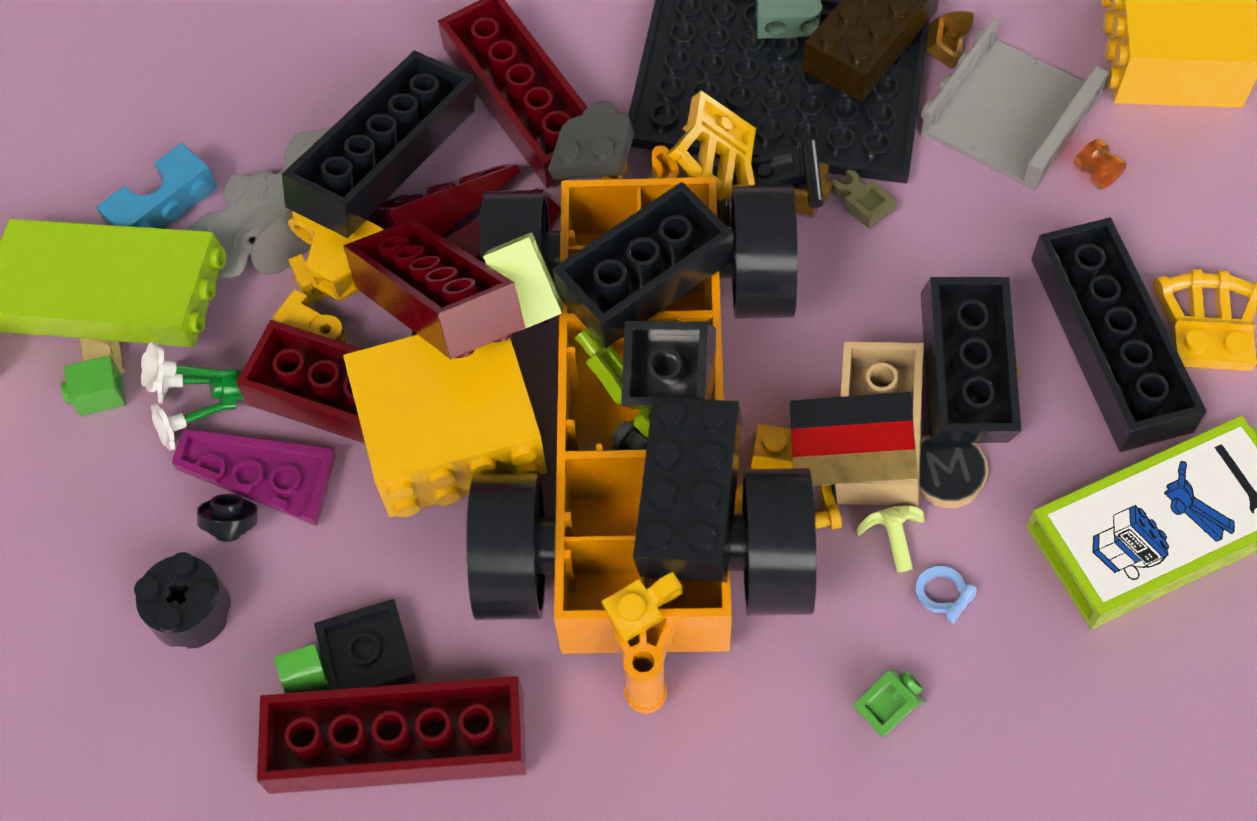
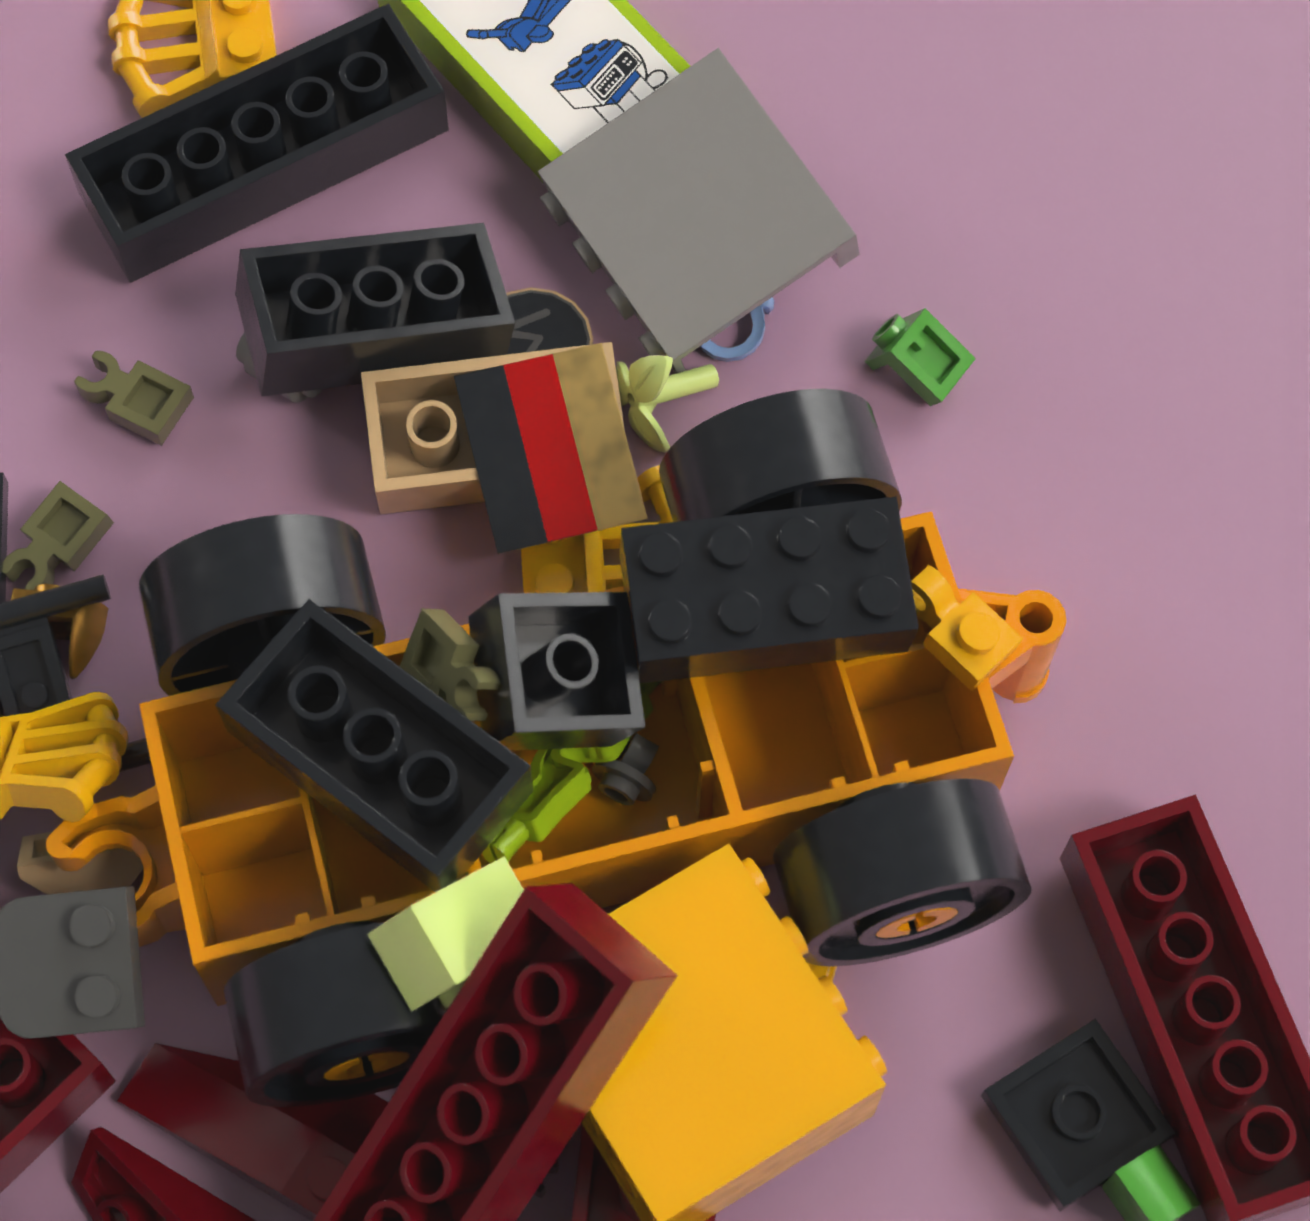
camera: 110 degrees left, 5 degrees up
(688, 309) = (442, 660): none -> olive plate
(947, 252) = (139, 401): none -> olive plate
(1021, 573) = (694, 208): none -> light grey panel

